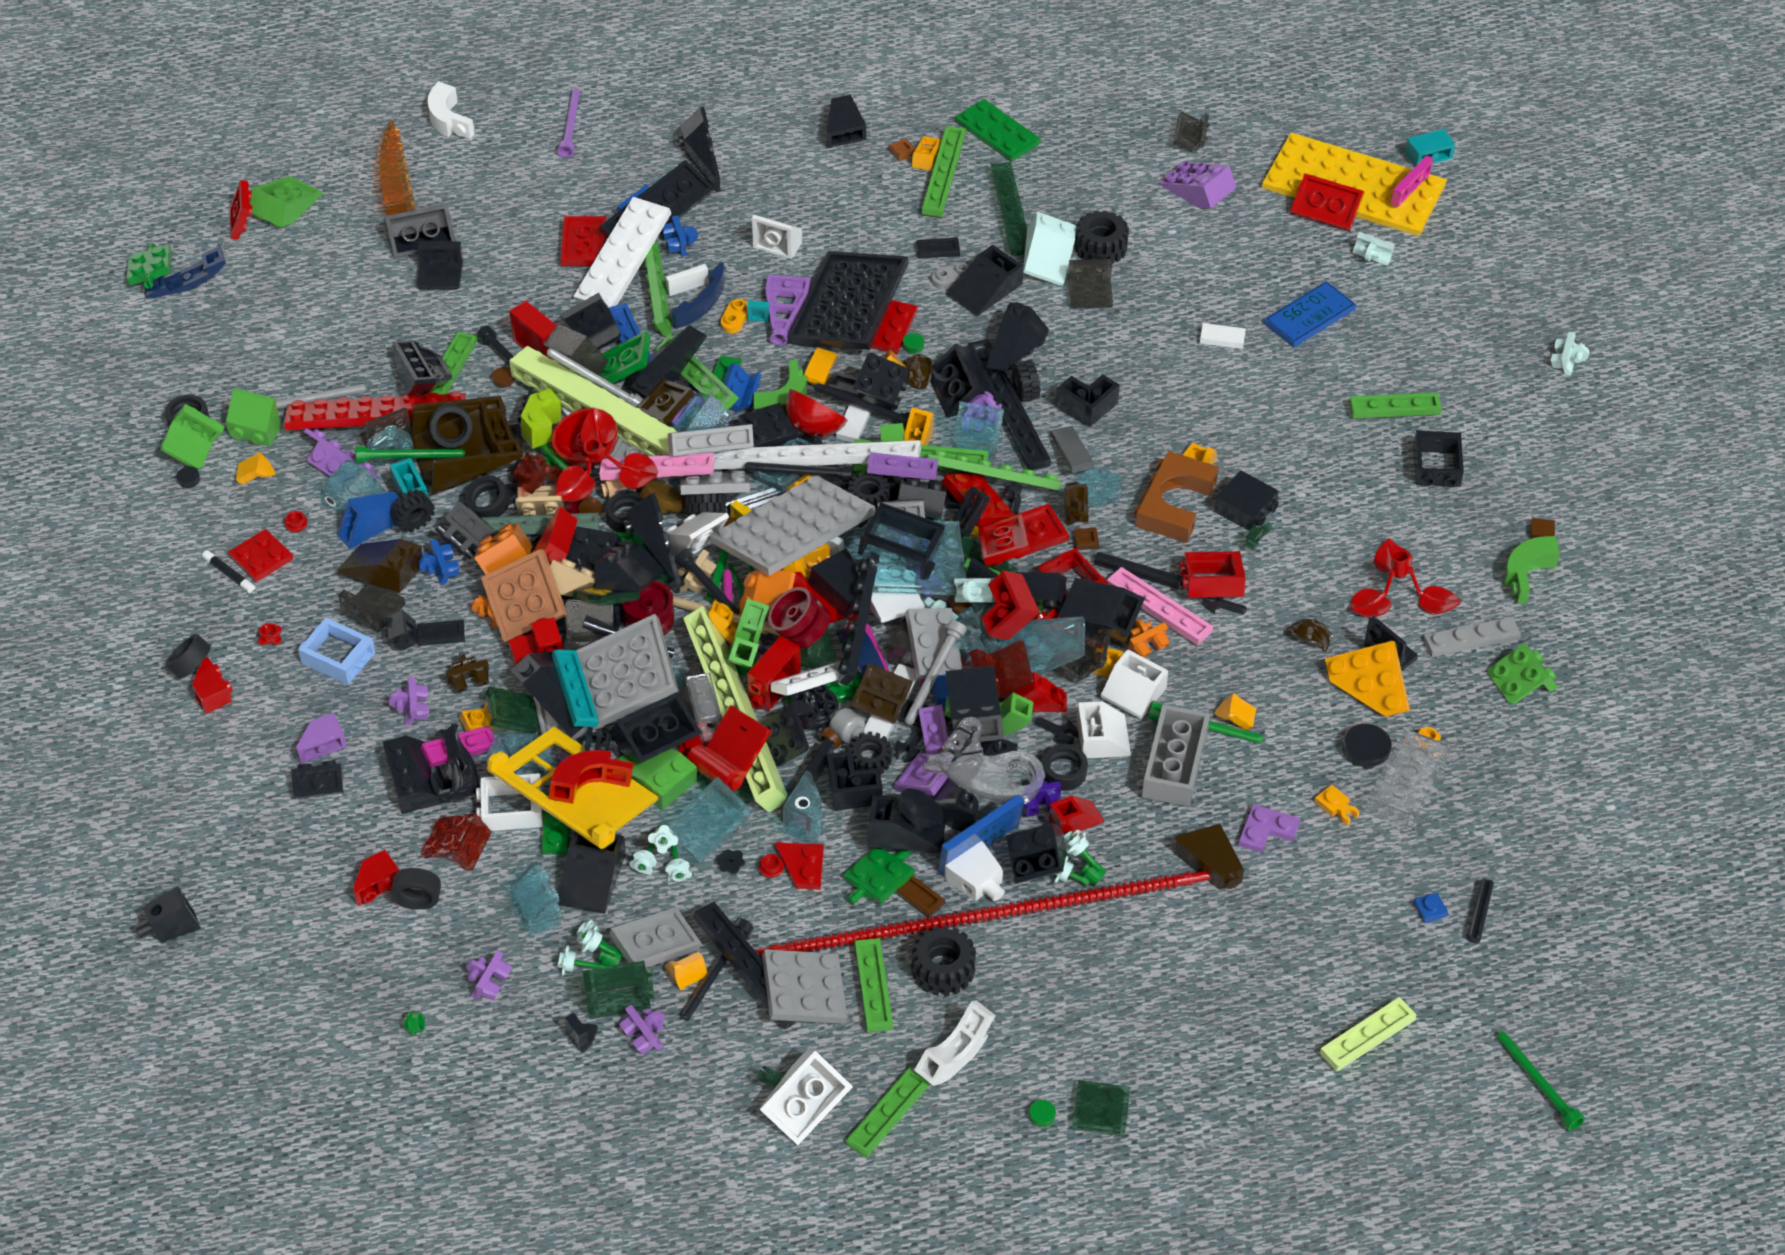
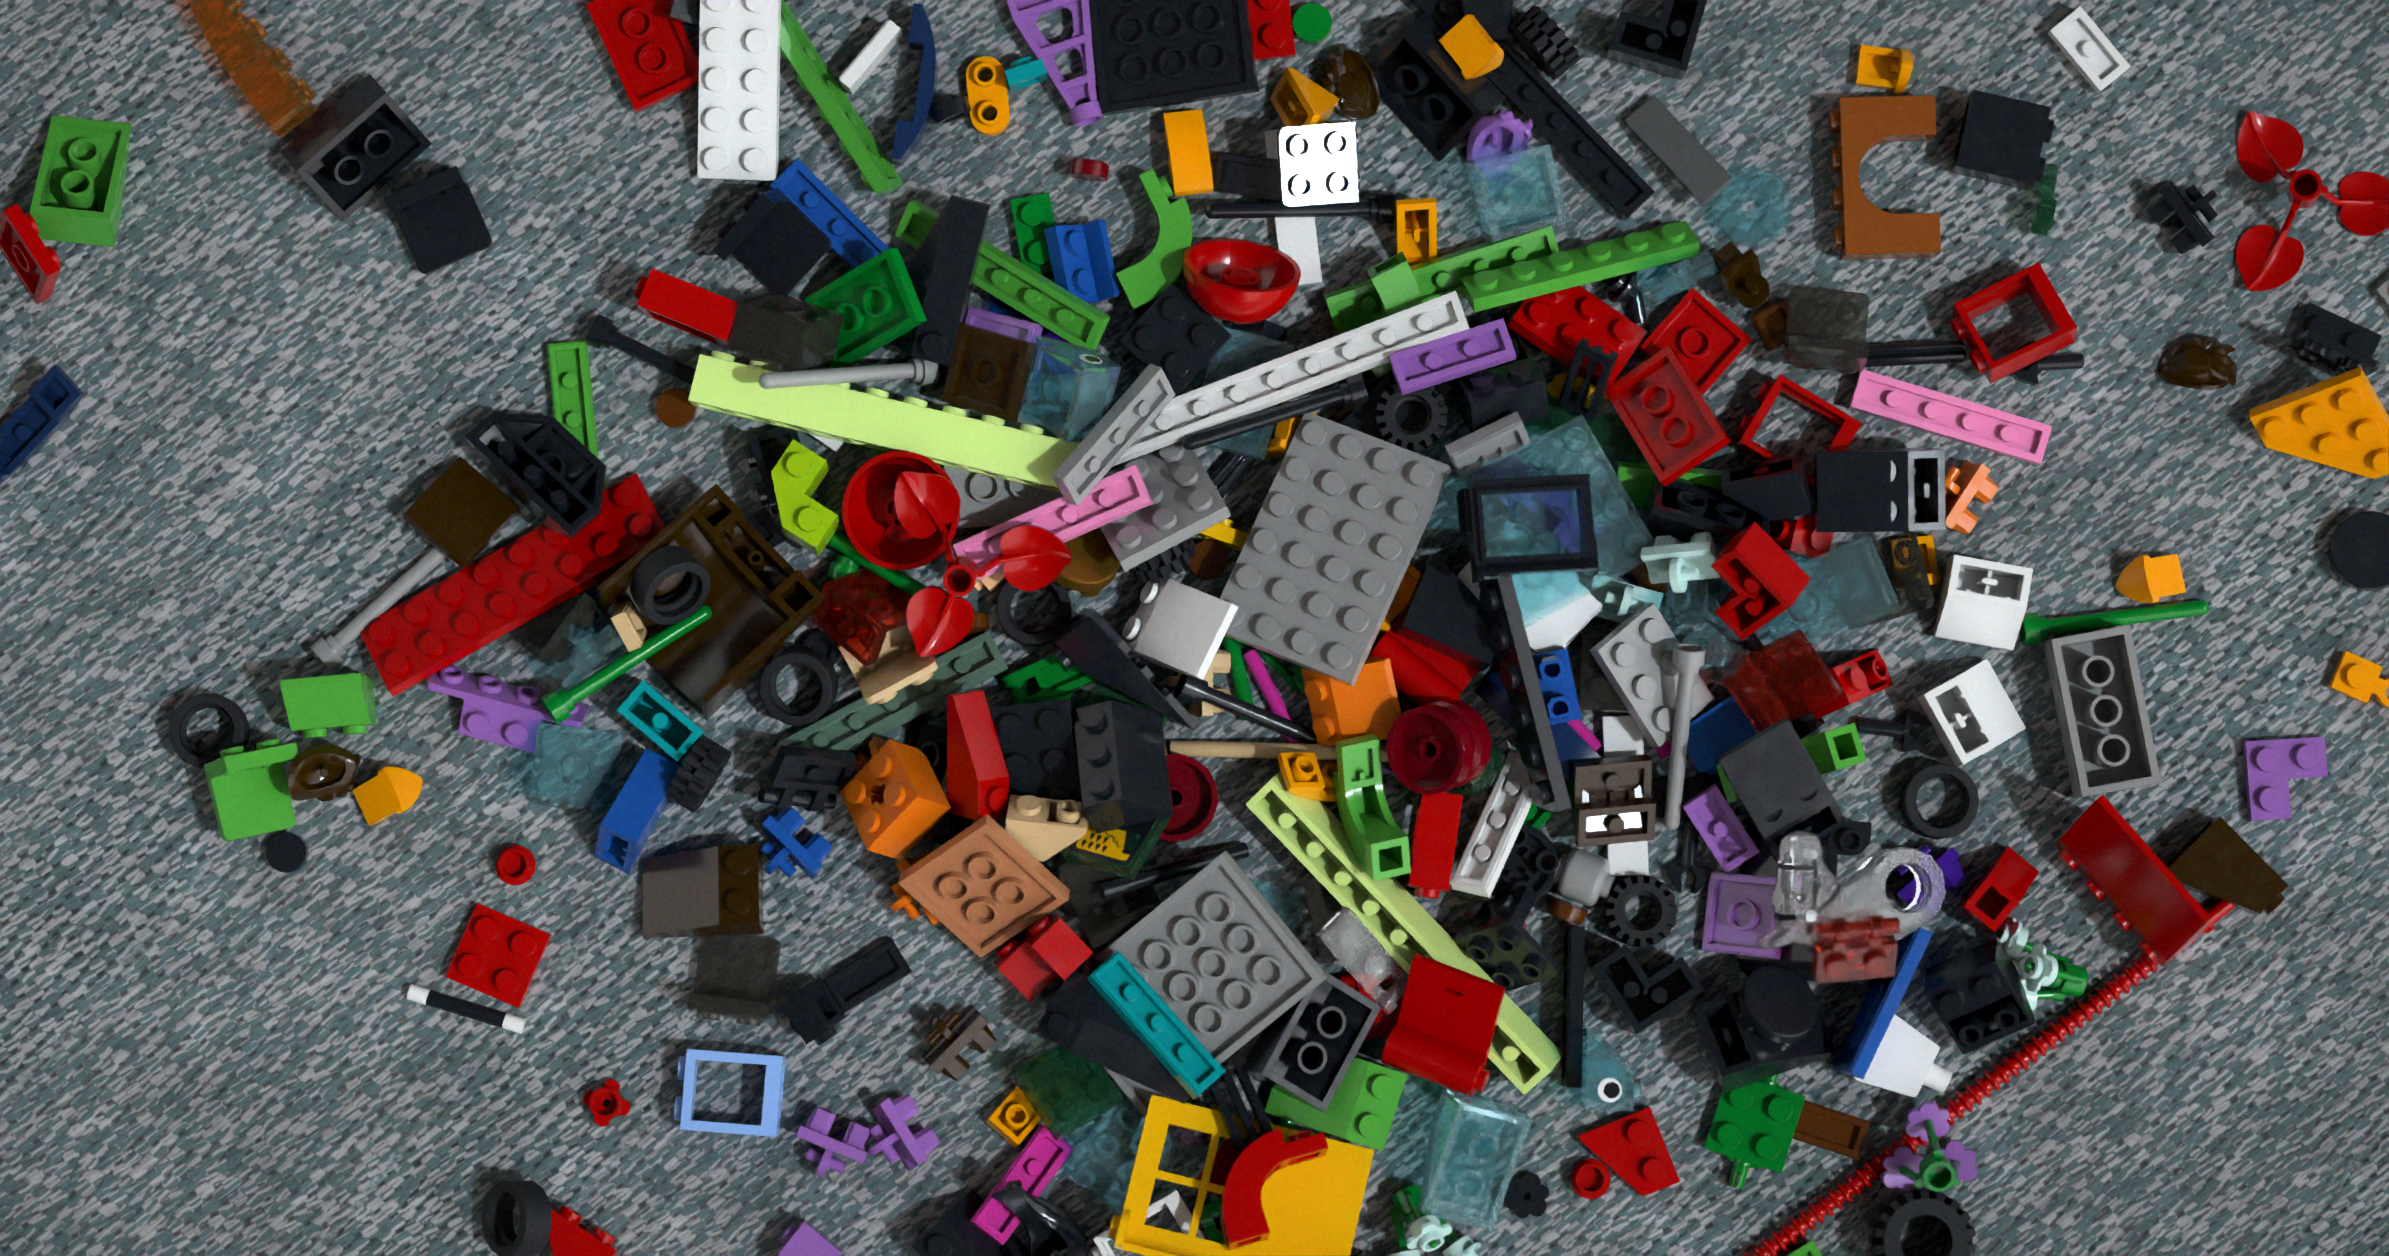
camera: 25 degrees left, 35 degrees up
(227, 447) = (322, 773): none -> dark brown hat
(370, 375) = (461, 512): none -> dark brown slope
(370, 693) = (817, 1132): none -> medium lavender hips
(419, 438) = (629, 625): none -> tan tile
(713, 311) = (950, 110): none -> black tile
(766, 356) = (1088, 170): none -> dark red tile
(878, 626) = (1557, 685): none -> blue hips
(966, 911) = (1941, 1167): none -> medium lavender plant
(973, 790) = (1855, 958): none -> clear red plate
(988, 367) = (1472, 48): none -> light orange tile
(1033, 491) = (1679, 278): none -> clear light blue plate
(1108, 541) = (1826, 330): none -> clear smoke bracket
(1153, 826) = (2132, 882): none -> red slope
(1313, 484) = (2088, 49): none -> white plate
(1326, 559) = (2172, 202): none -> black hips

